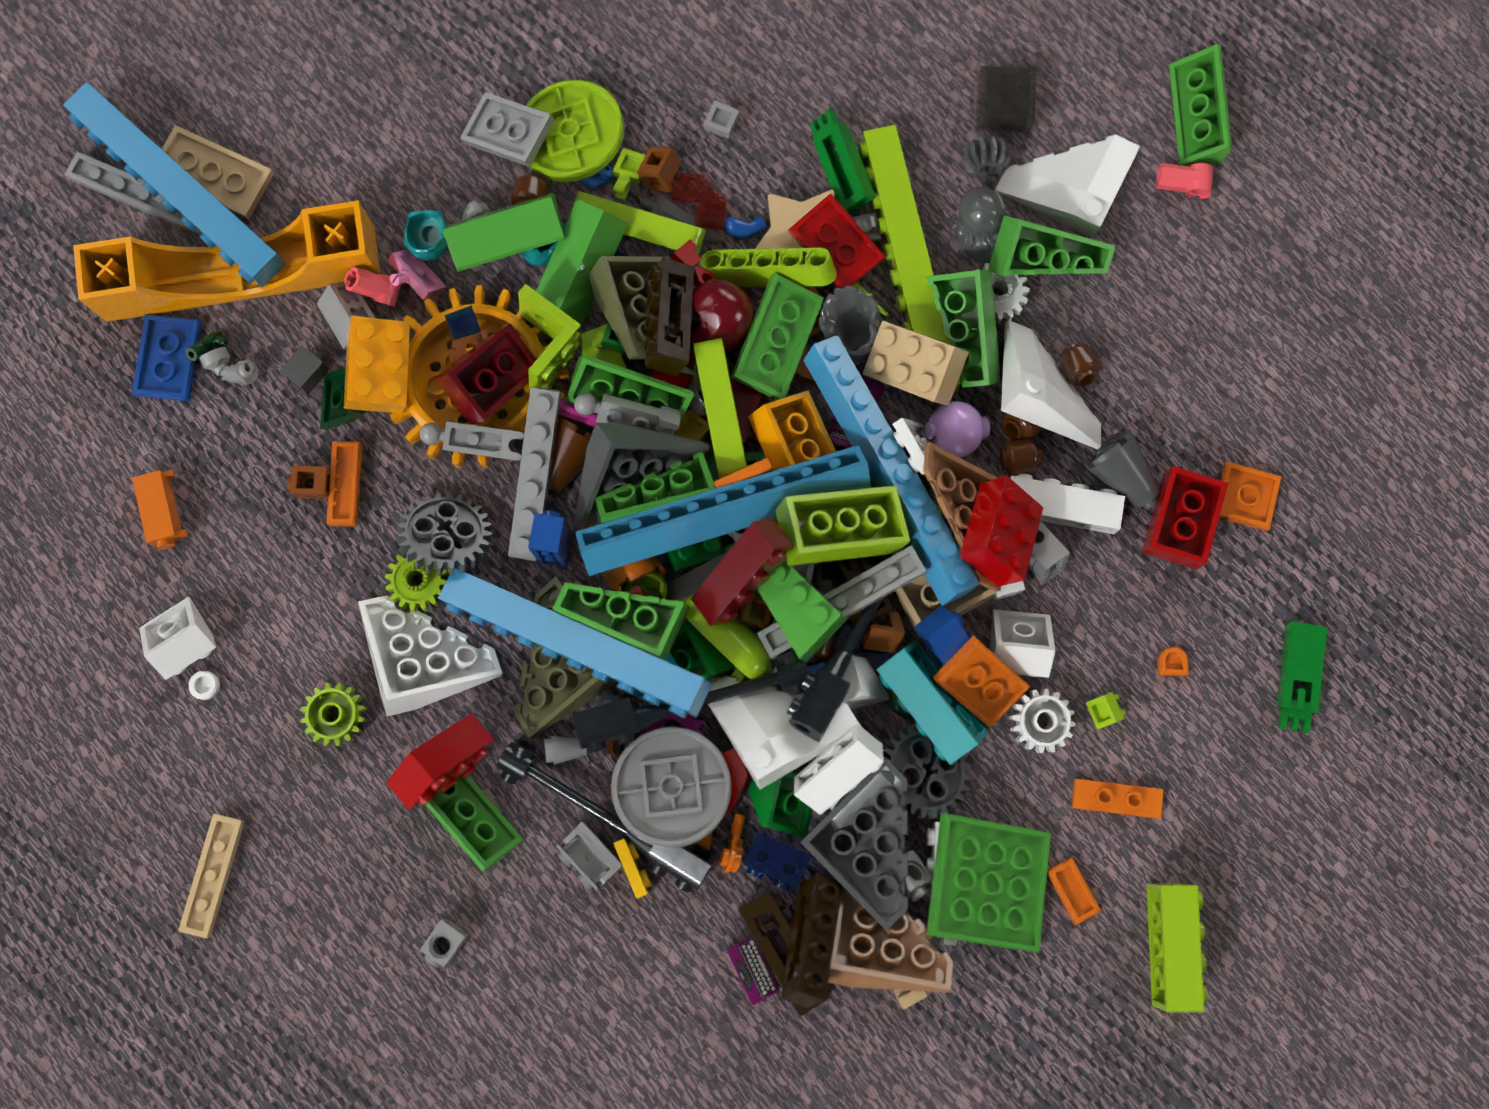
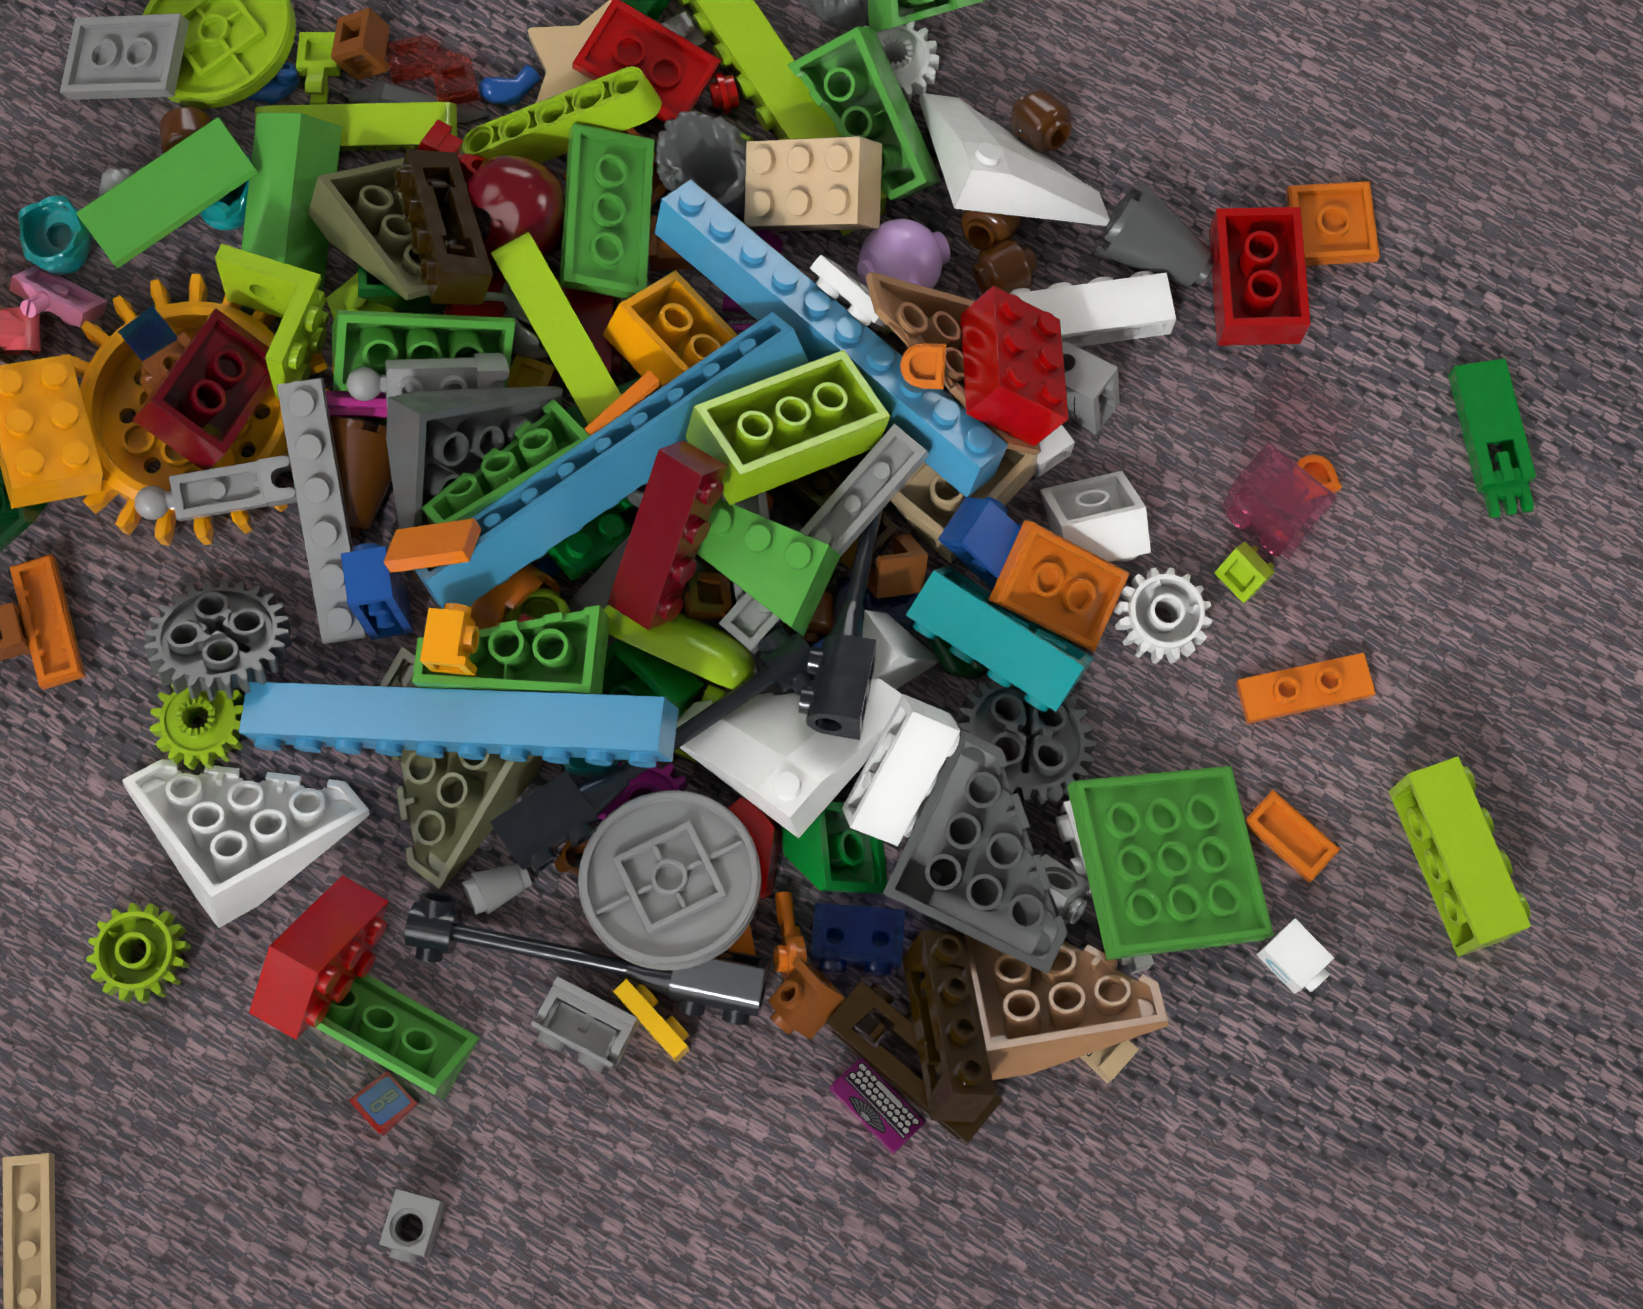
camera: 20 degrees left, 5 degrees down
(451, 860) = (383, 1103): none -> slope
(584, 593) = (450, 640): none -> light orange brick
(592, 528) = (432, 545): none -> orange tile
(730, 890) = (804, 1000): none -> dark orange brick
(880, 277) = (724, 93): none -> red plate
(943, 515) = (924, 365): none -> orange tile
(1048, 971) = (1296, 958): none -> white brick
(1142, 674) = (1277, 502): none -> clear pink brick

